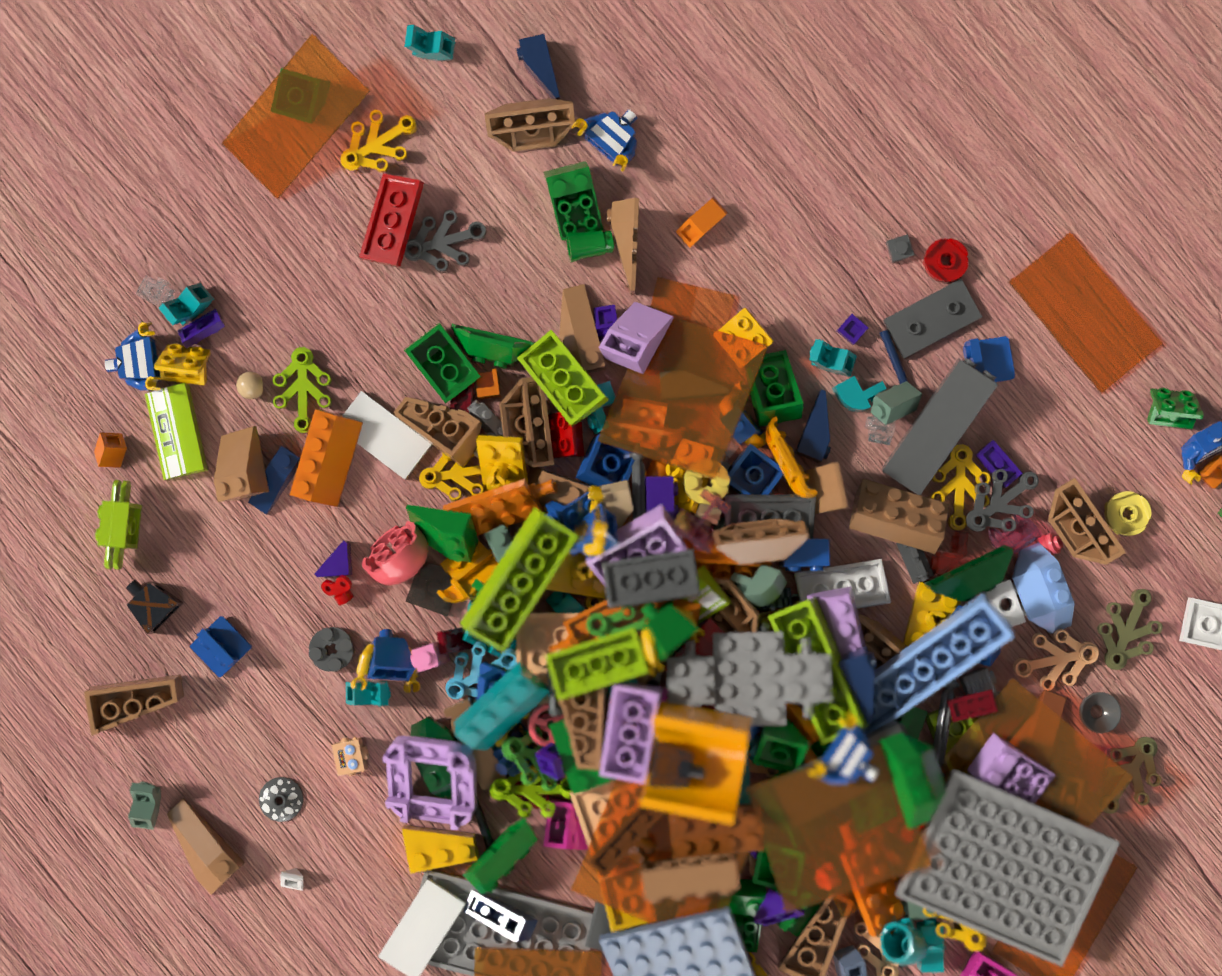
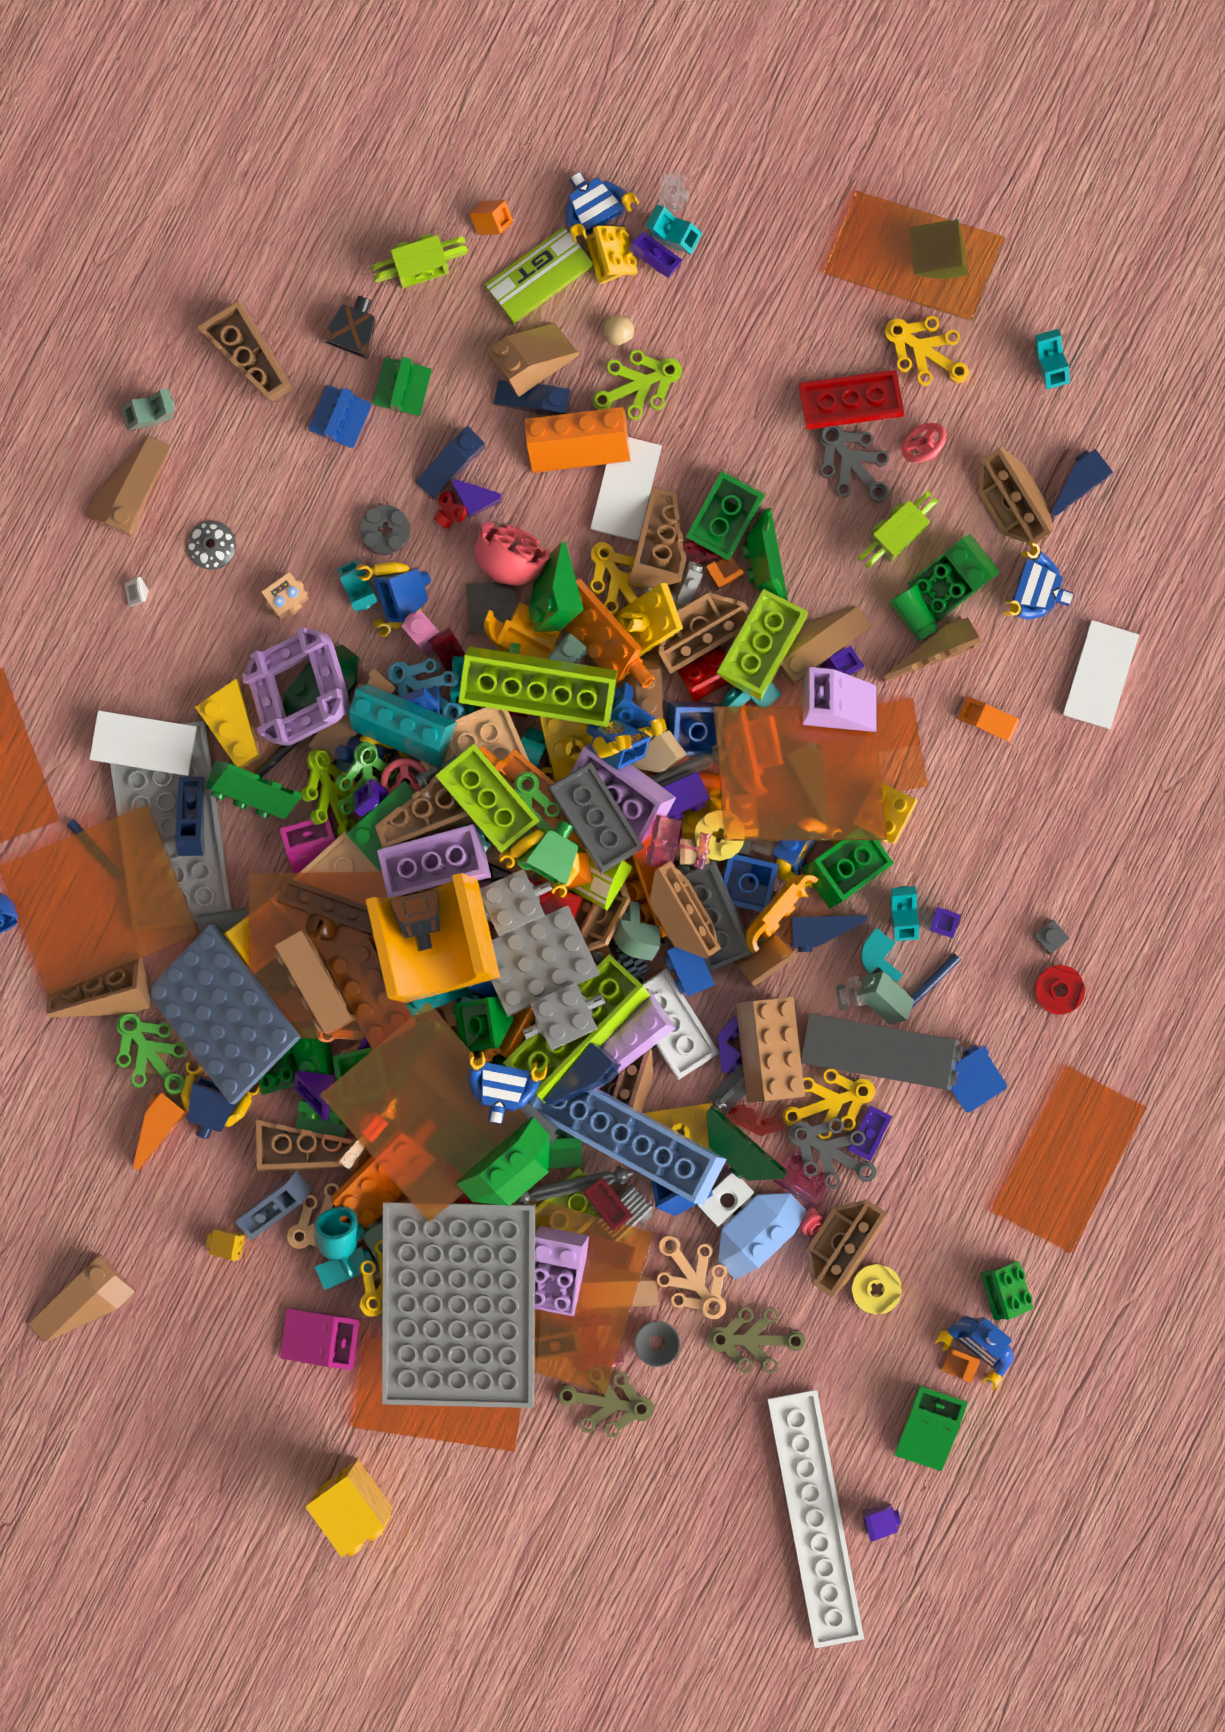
camera: 70 degrees right, 0 degrees up
(218, 583) = (402, 386): none -> green bracket
(299, 570) = (451, 462): none -> dark blue slope
(455, 176) = (925, 445): none -> coral piece
(518, 229) = (899, 531): none -> lime brick
(703, 117) = (1100, 674): none -> white tile
(886, 552) = (728, 1055): none -> dark purple slope
(932, 318) = (992, 1001): dark grey plate -> none

